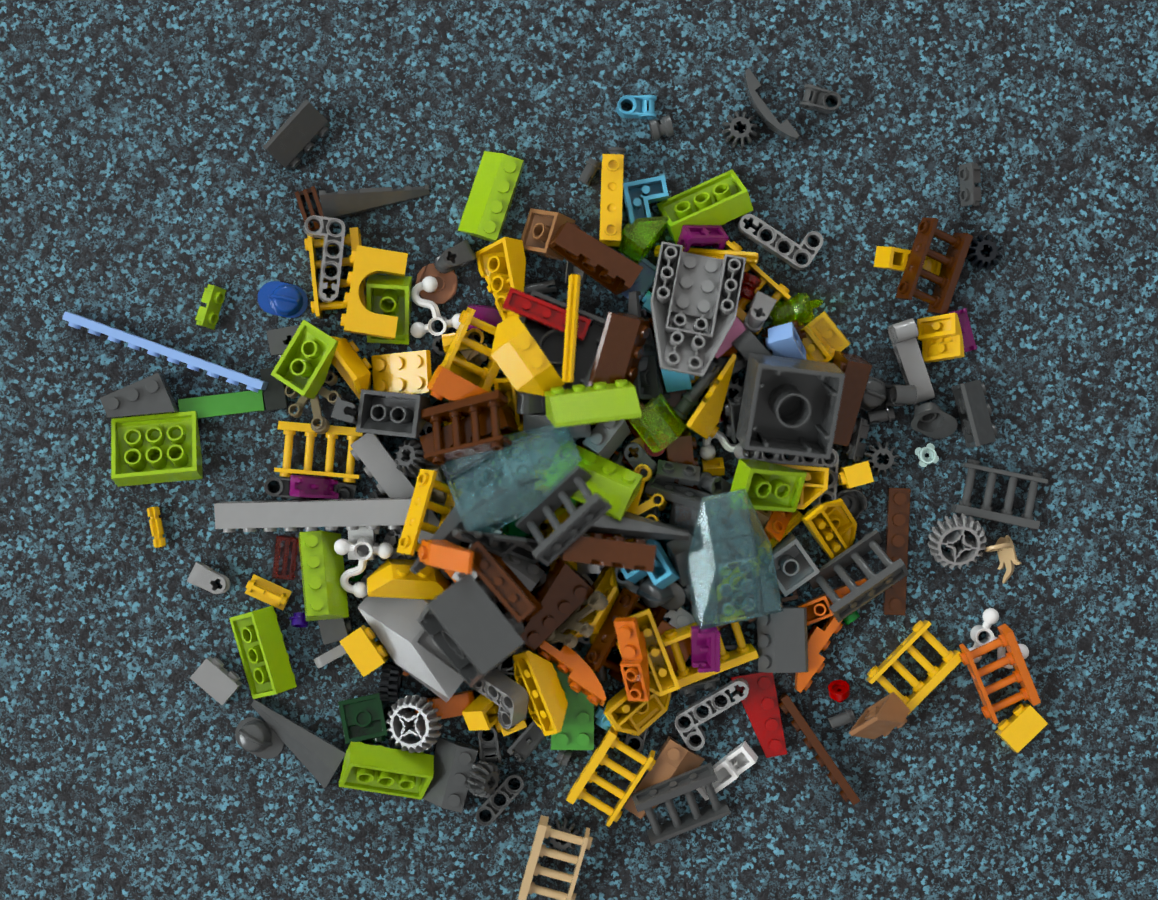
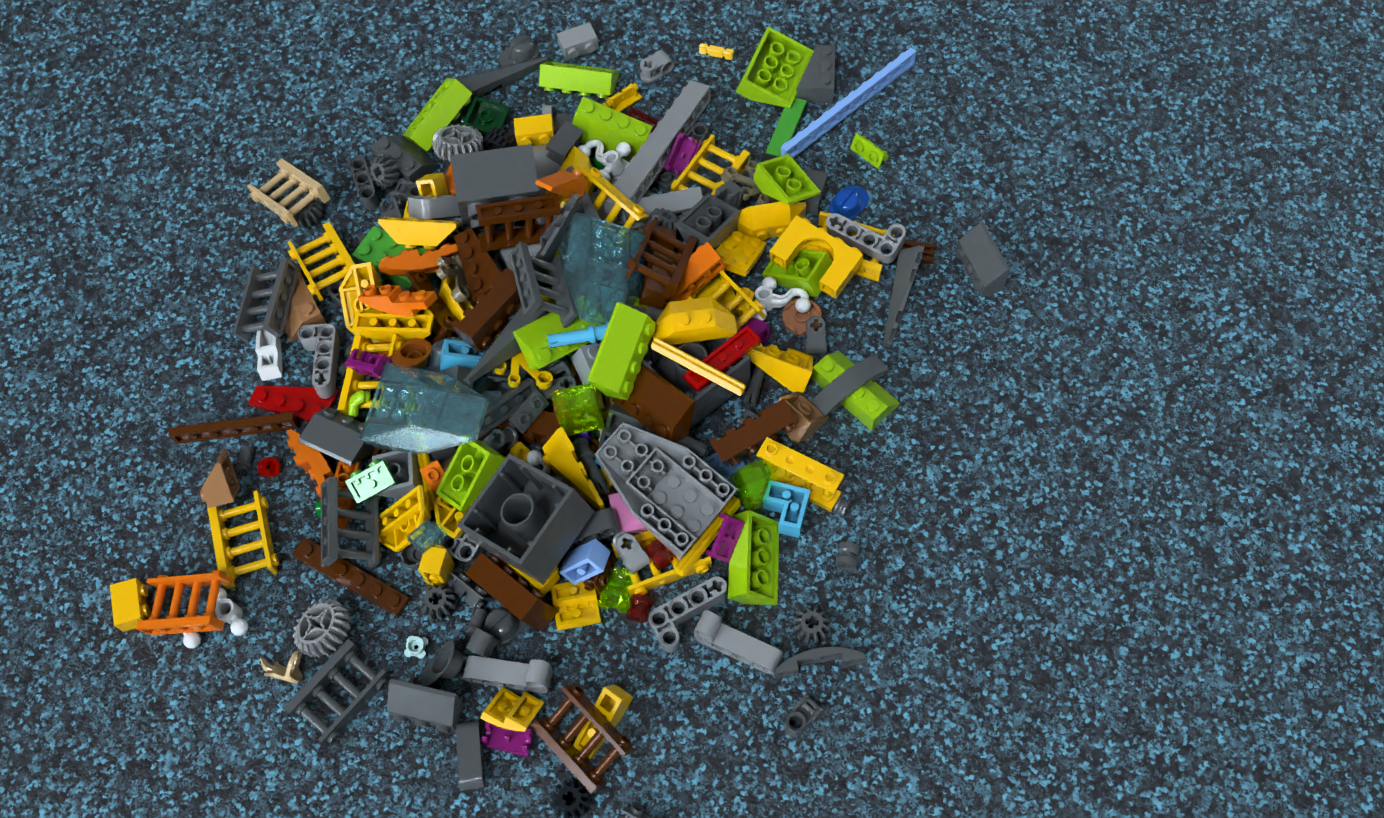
camera: 125 degrees right, 25 degrees down
(367, 608) = (563, 141): none -> dark grey hinge
(498, 197) = (848, 383): none -> dark grey slope
(590, 443) = (591, 334): none -> medium azure pin
(639, 107) = (876, 547): medium azure piece -> none
(676, 614) = (413, 353): none -> dark orange piece
(742, 642) = (356, 399): none -> lime arm
(787, 182) = (736, 644): none -> light grey beam
(798, 282) = (639, 608): none -> clear red wheel
(812, 578) = (371, 481): none -> bracket
(843, 490) = (426, 536): none -> clear light blue bracket
(991, 354) = (470, 755): none -> dark grey beam

